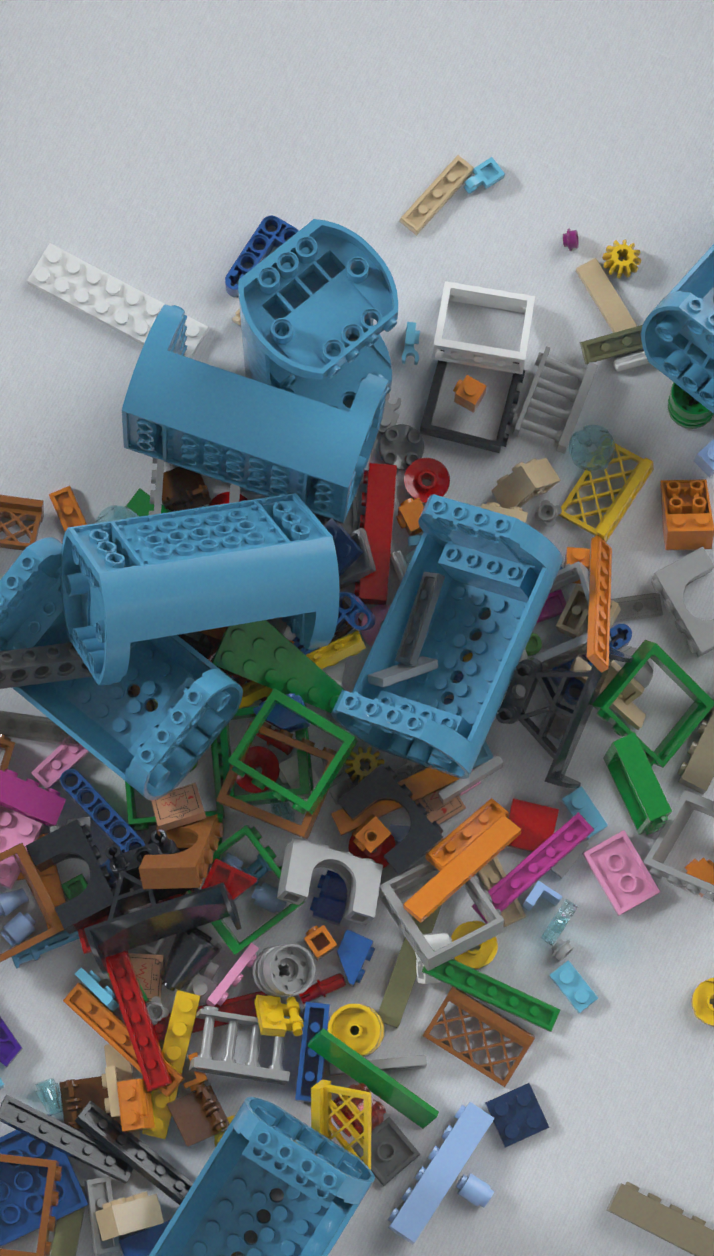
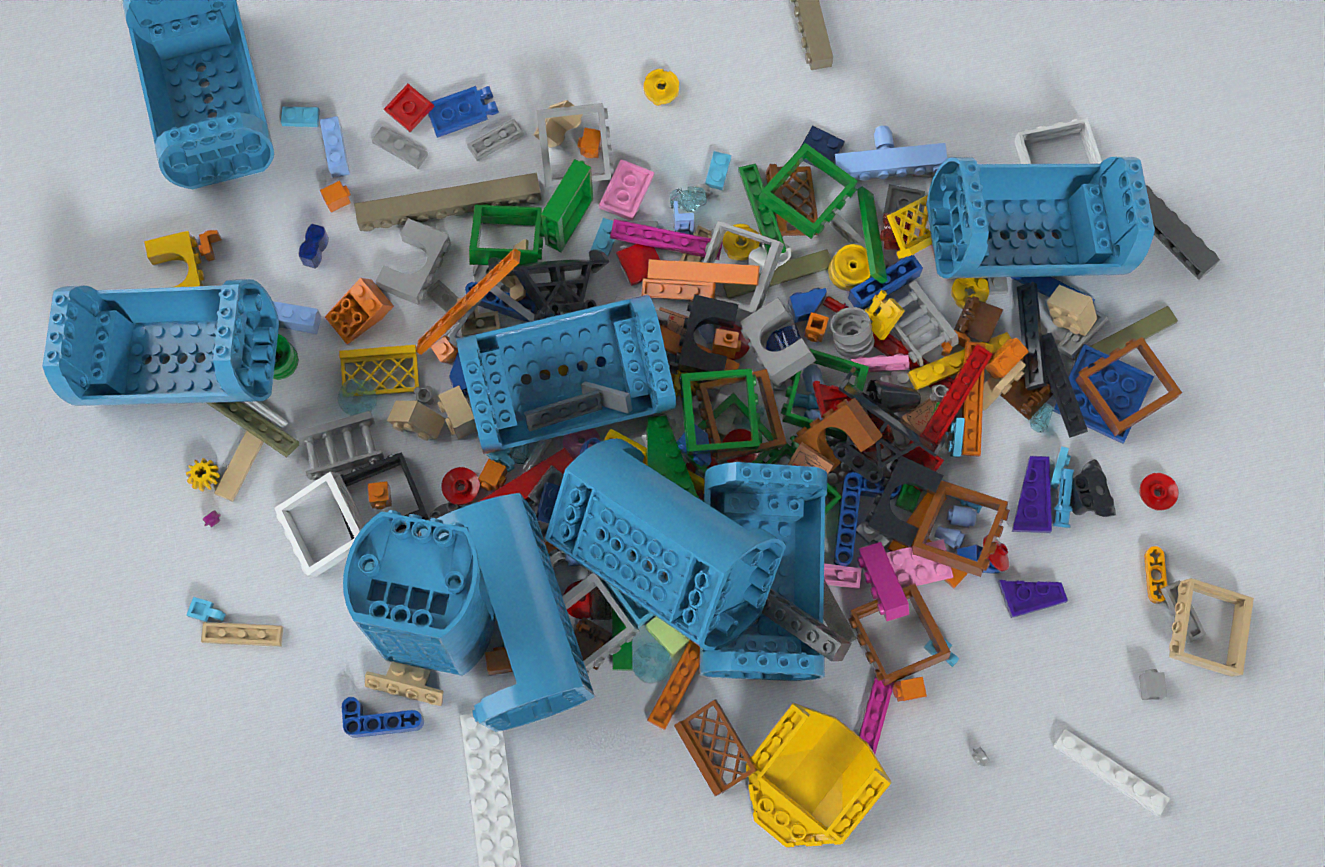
camera: 125 degrees left, 5 degrees down
(433, 1070) = (791, 215): none -> green window

